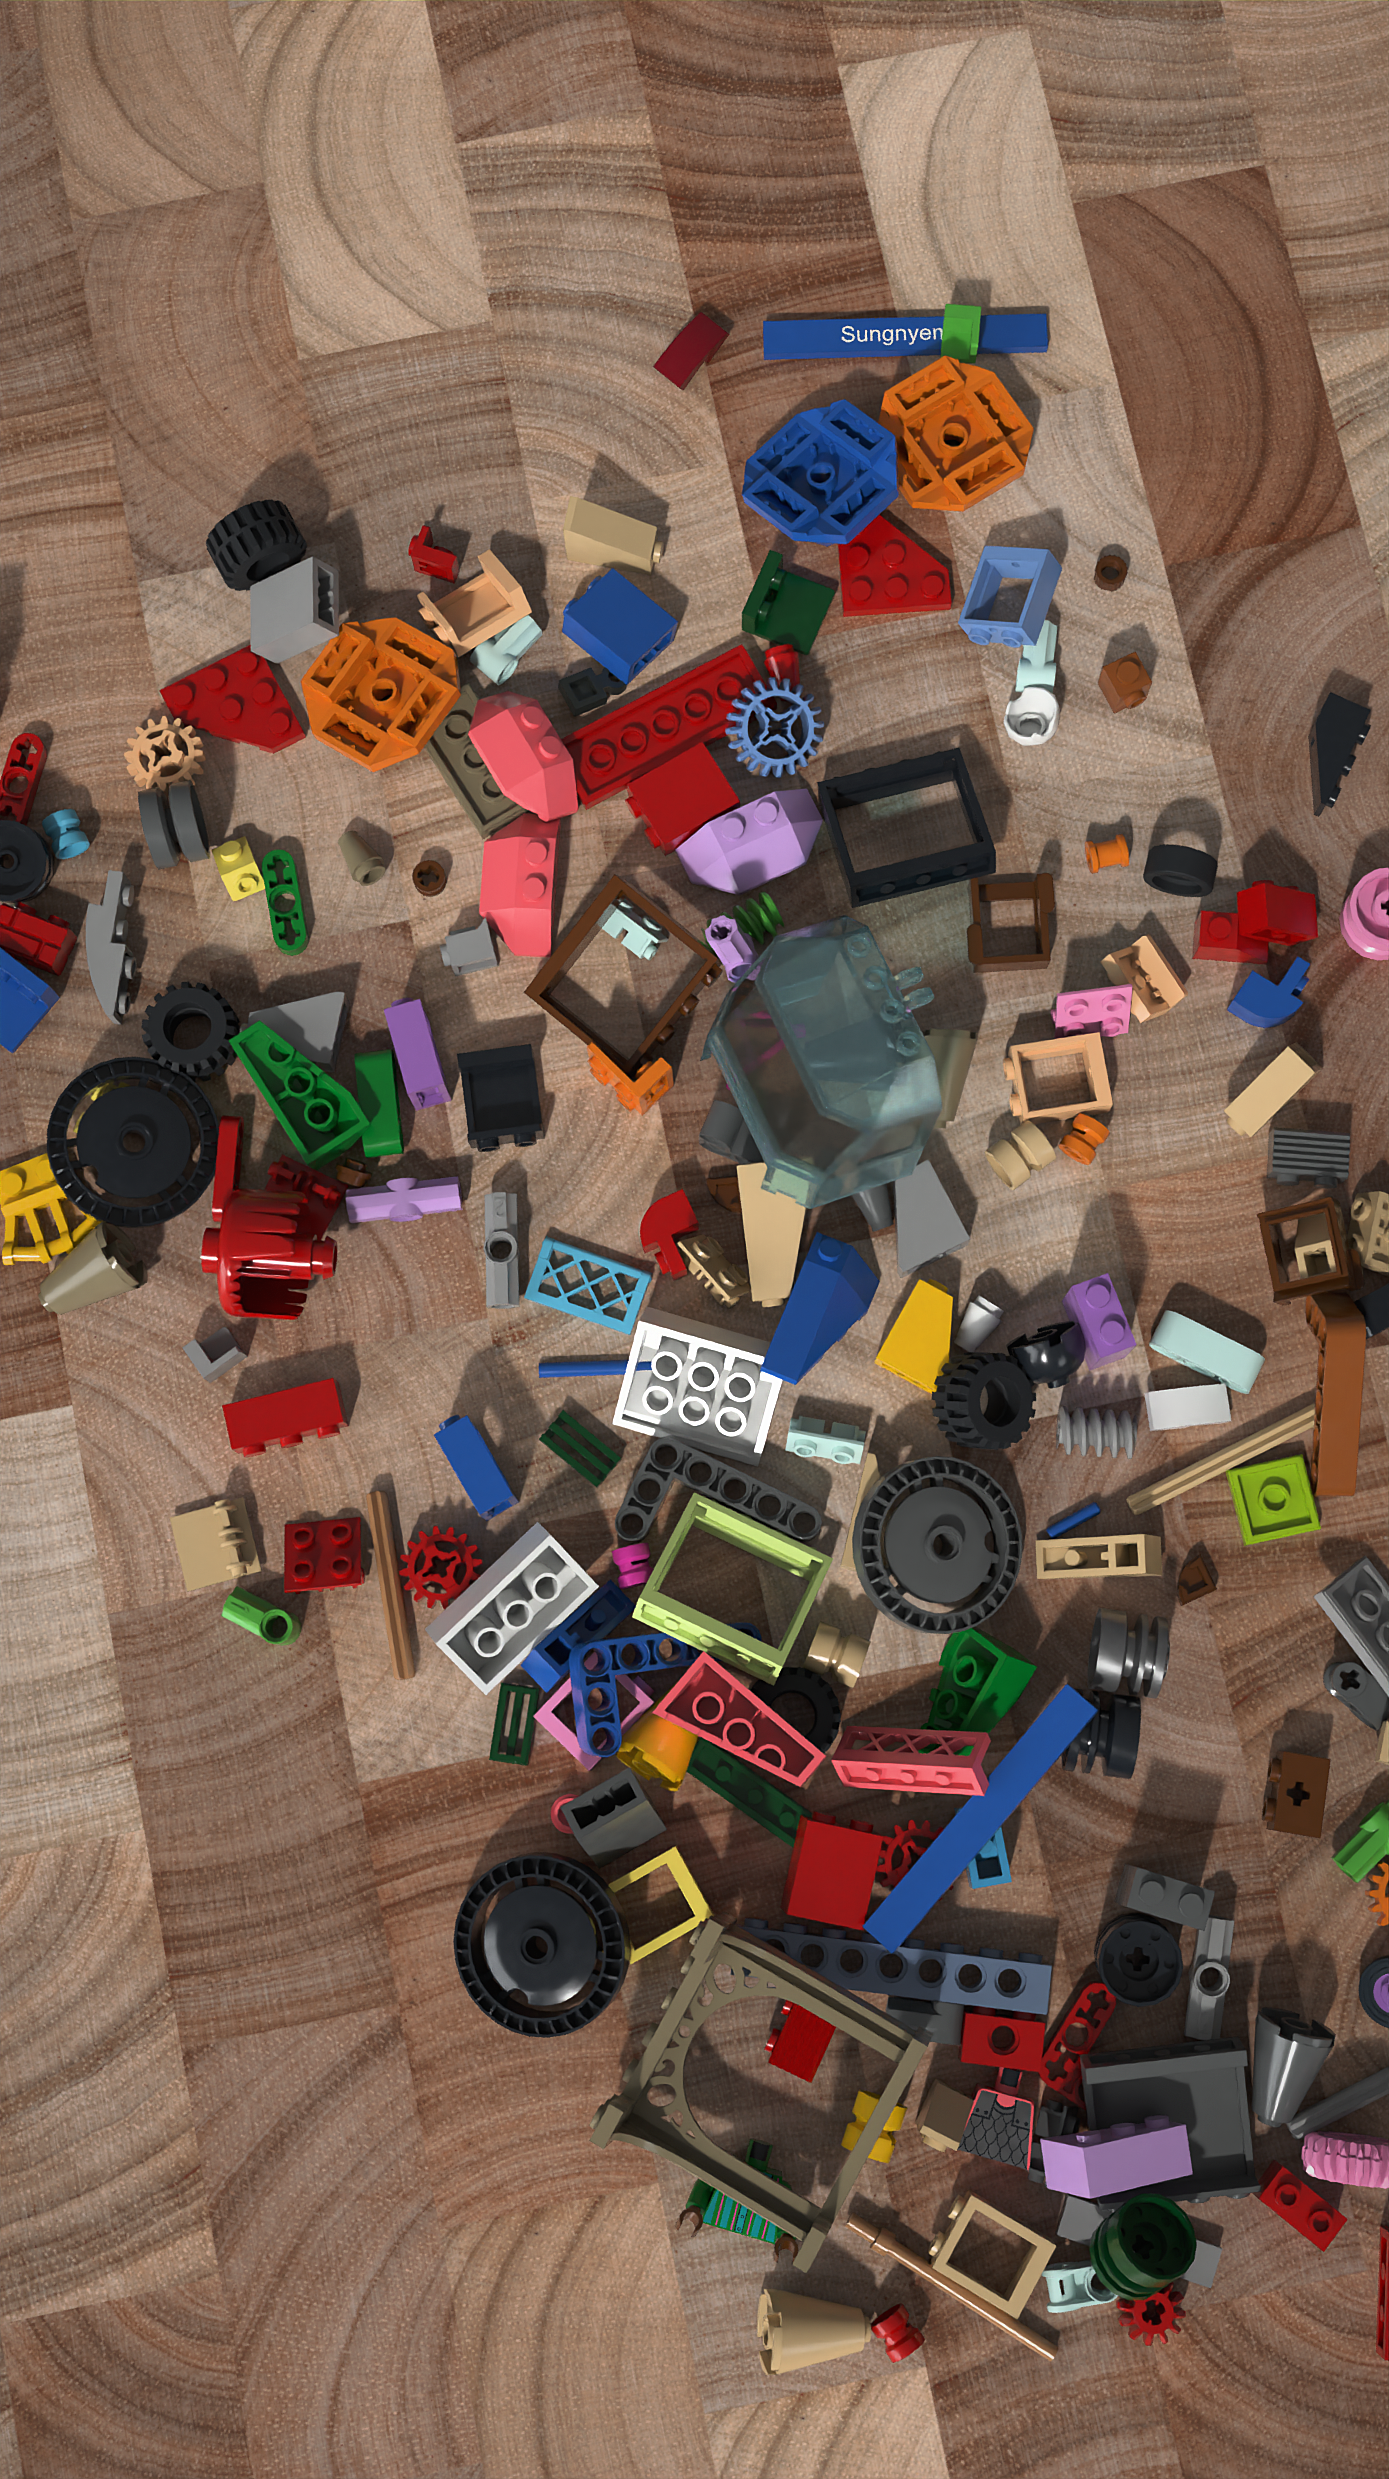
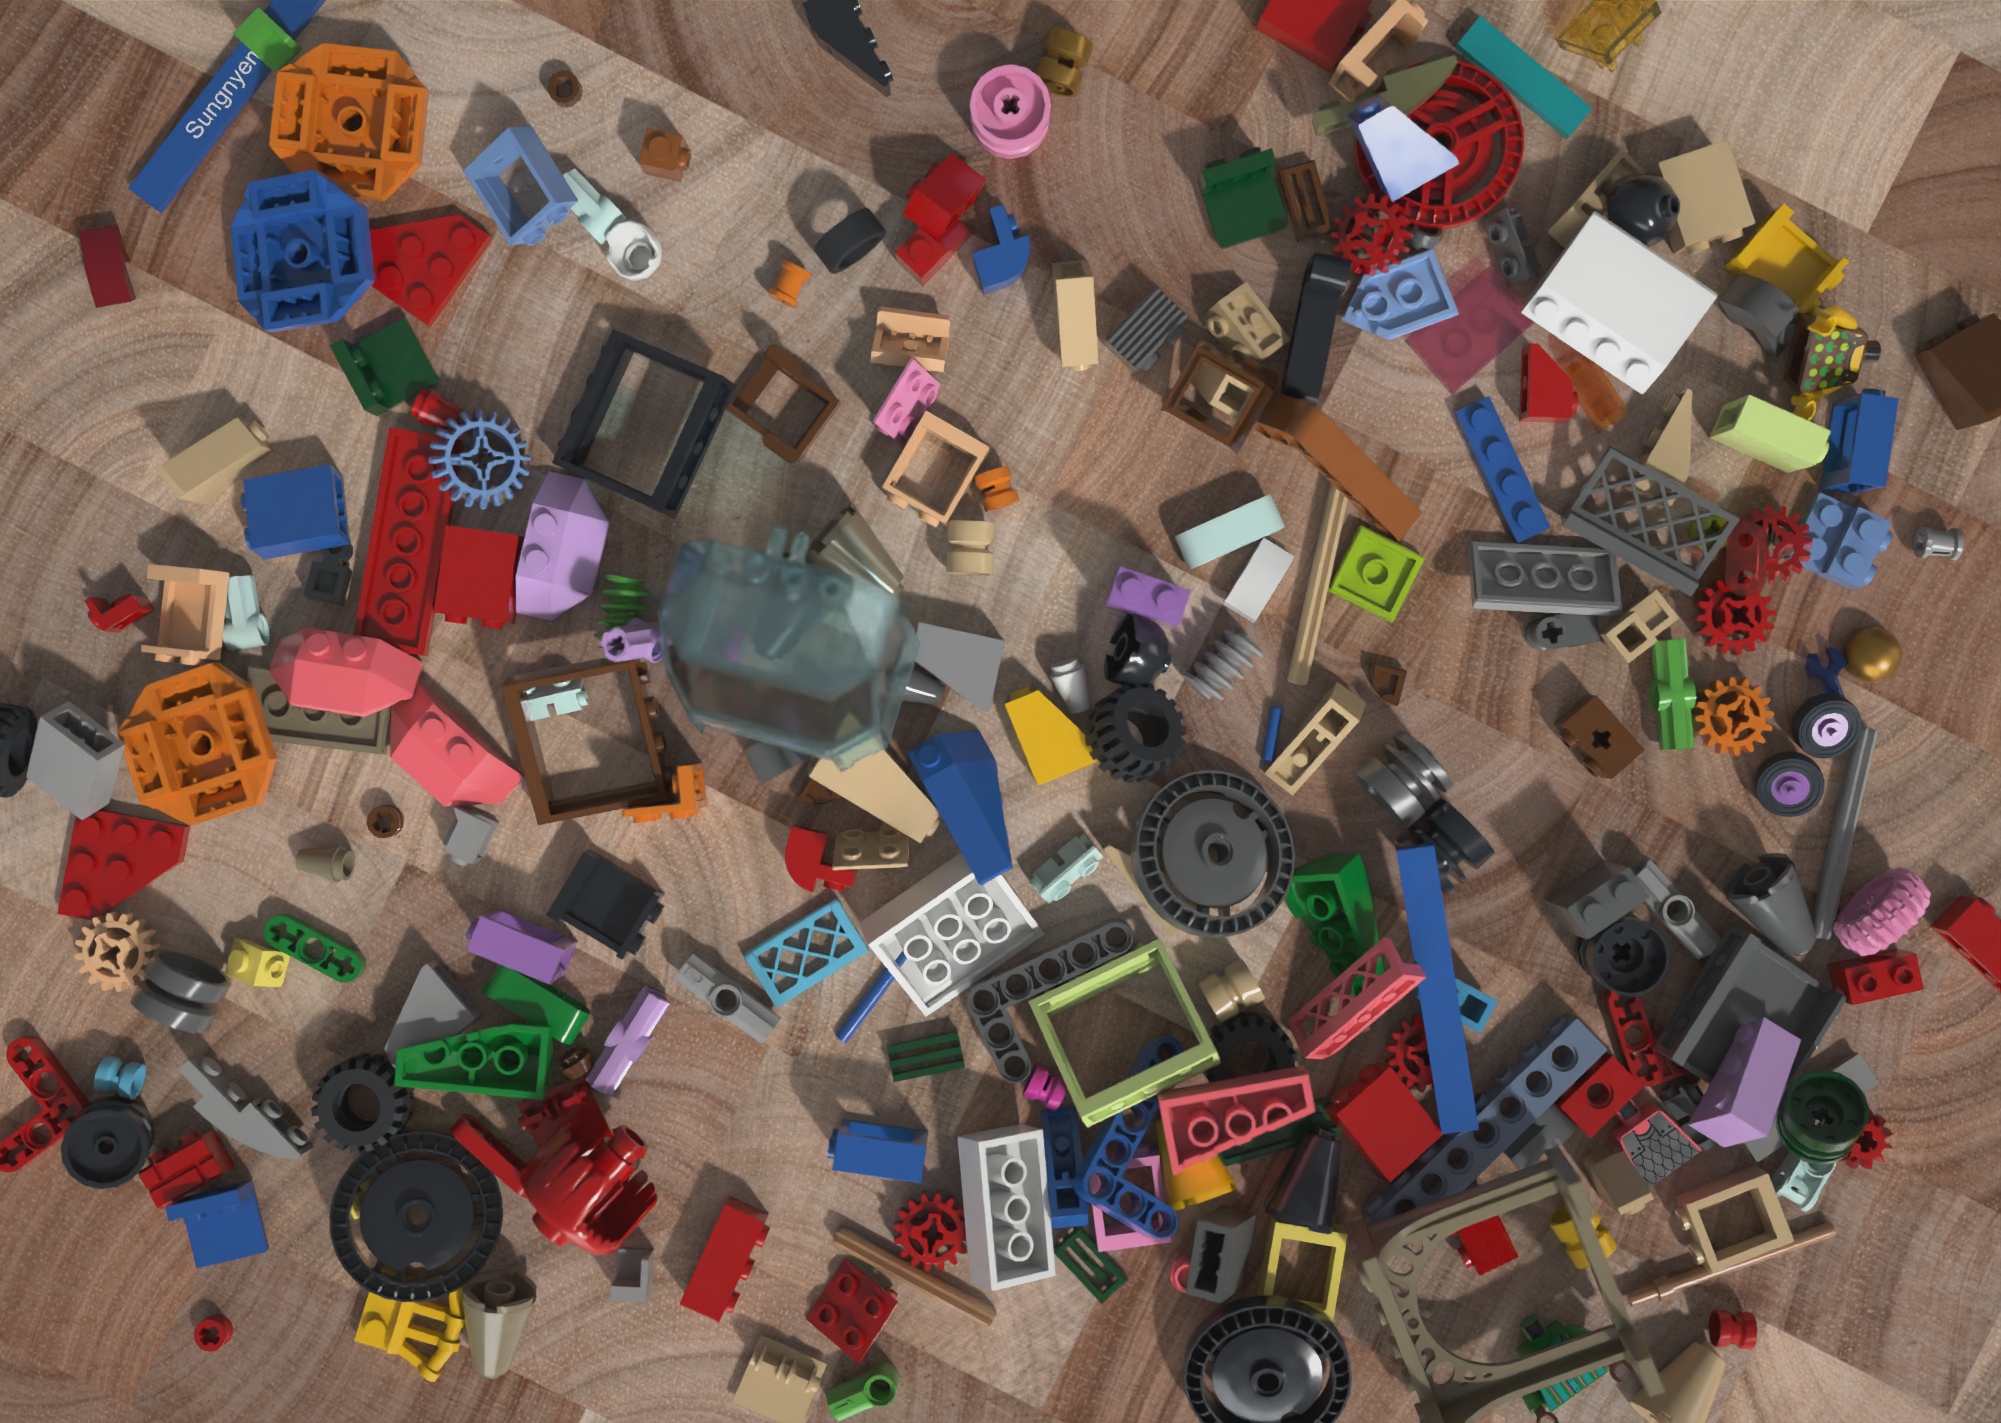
camera: 60 degrees left, 10 degrees up
(732, 1848) = (1309, 1183): none -> black cone

